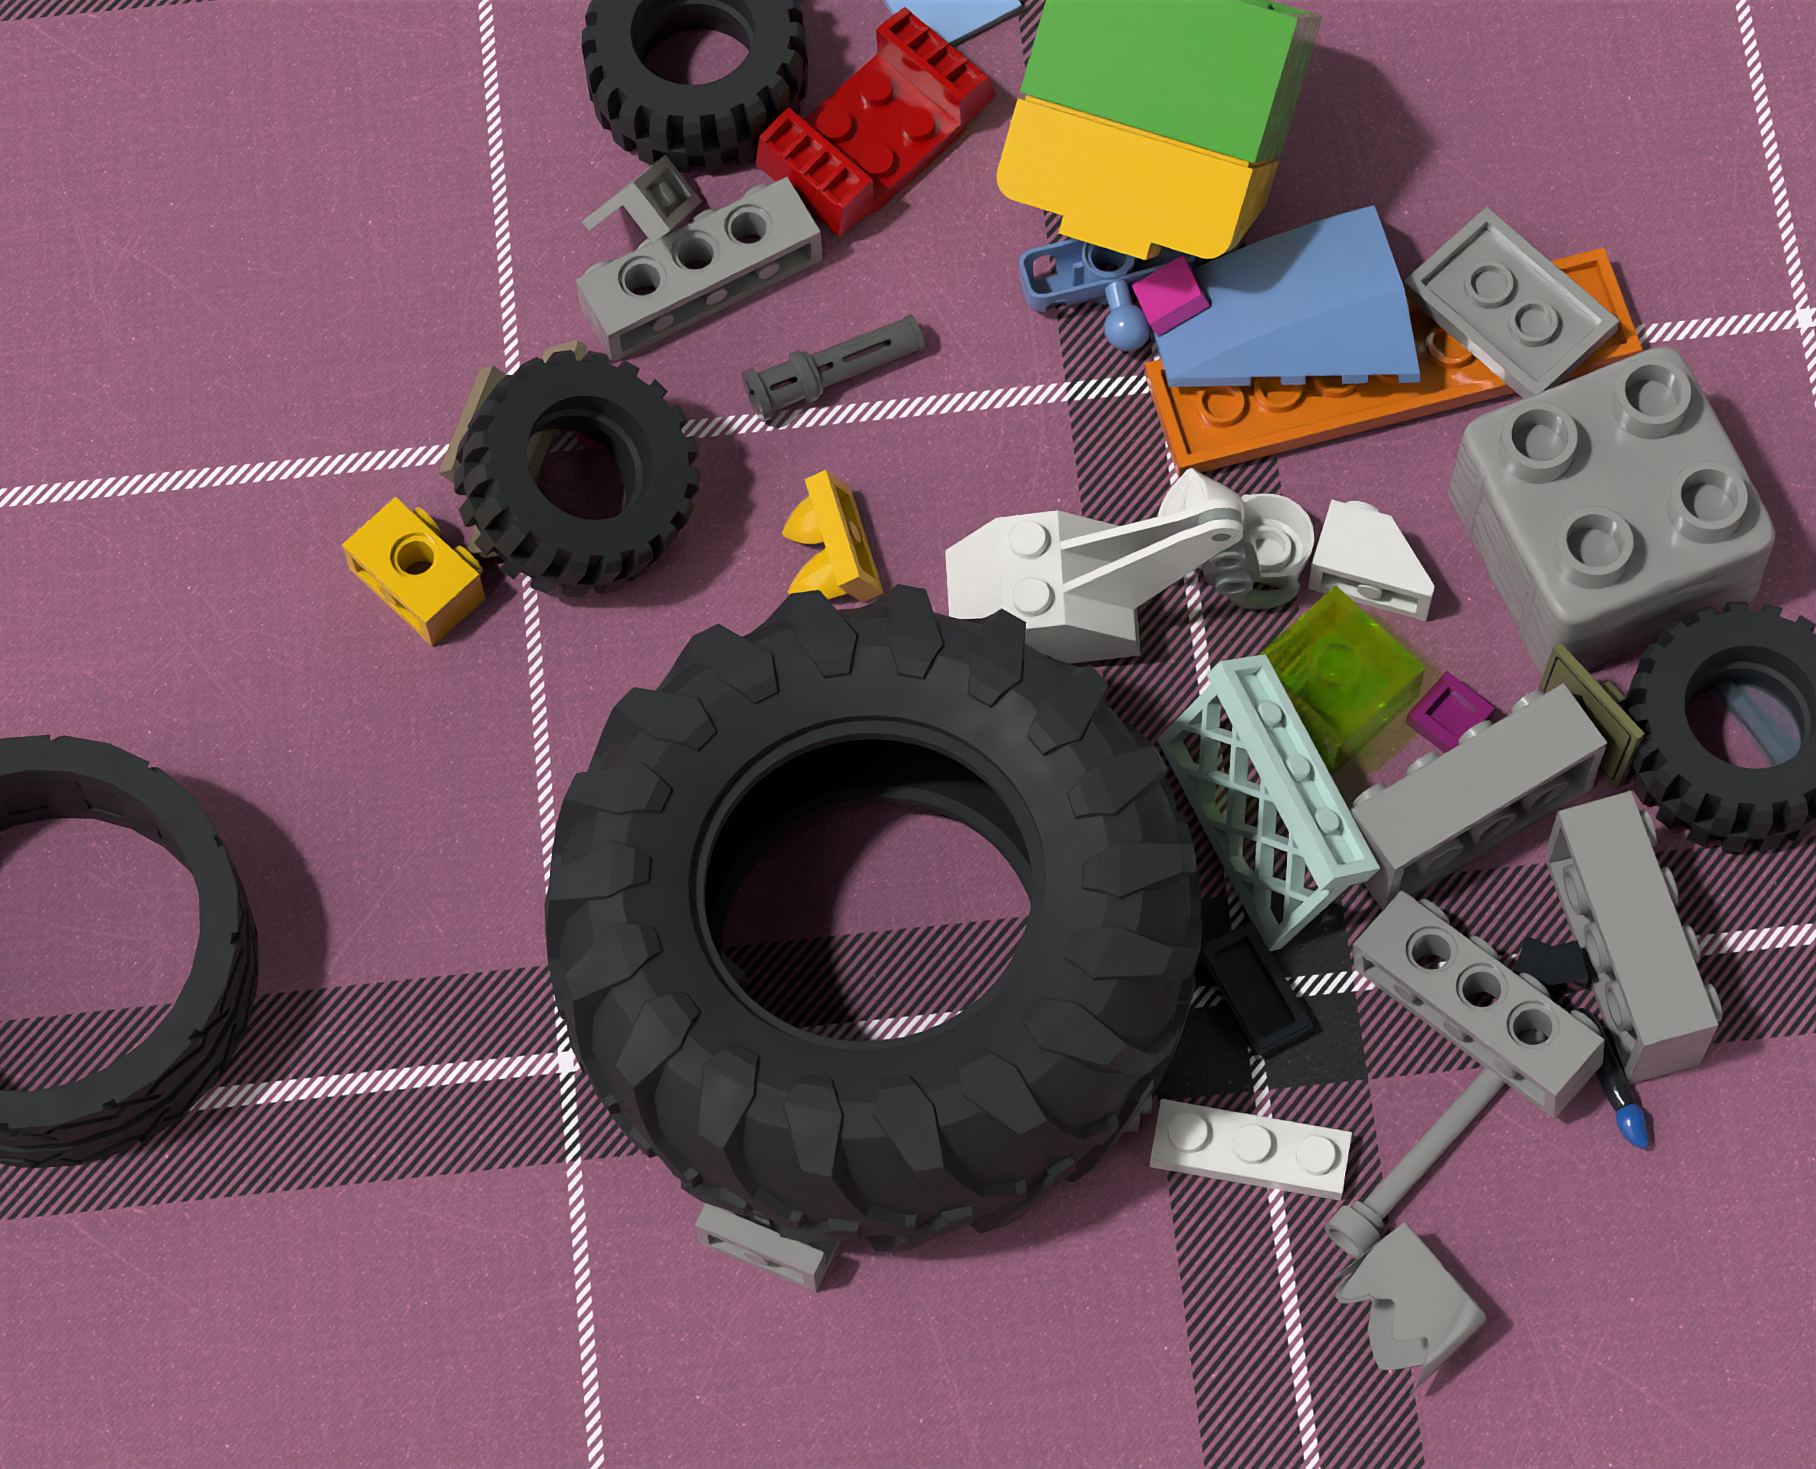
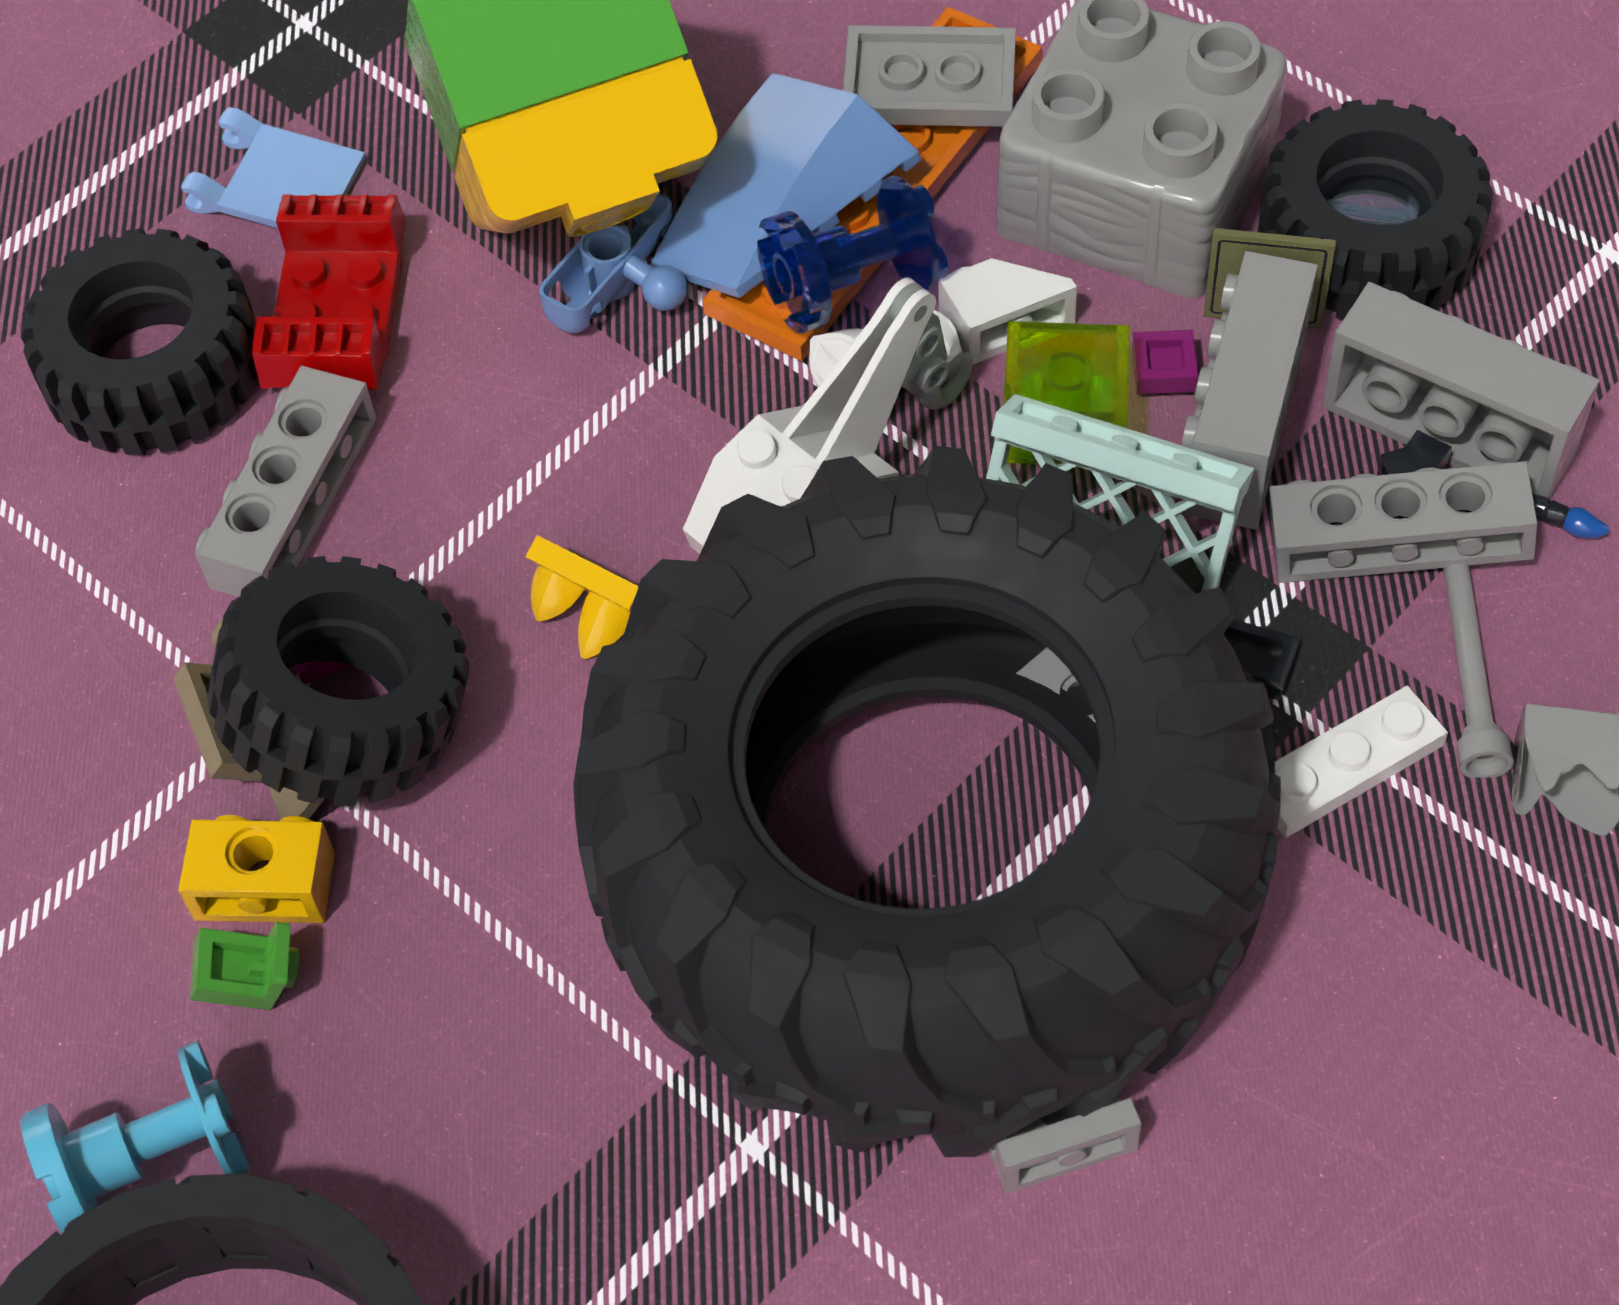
camera: 40 degrees left, 10 degrees down
(140, 702) = (110, 1153): none -> medium azure piece
(343, 636) = (243, 967): none -> bright green bracket
(654, 200) = (202, 448): light grey panel -> none
(801, 369) = (450, 492): dark grey pin -> none
(1170, 295) = (679, 237): dark pink tile -> none
(1249, 418) = (809, 266): none -> clear blue piece

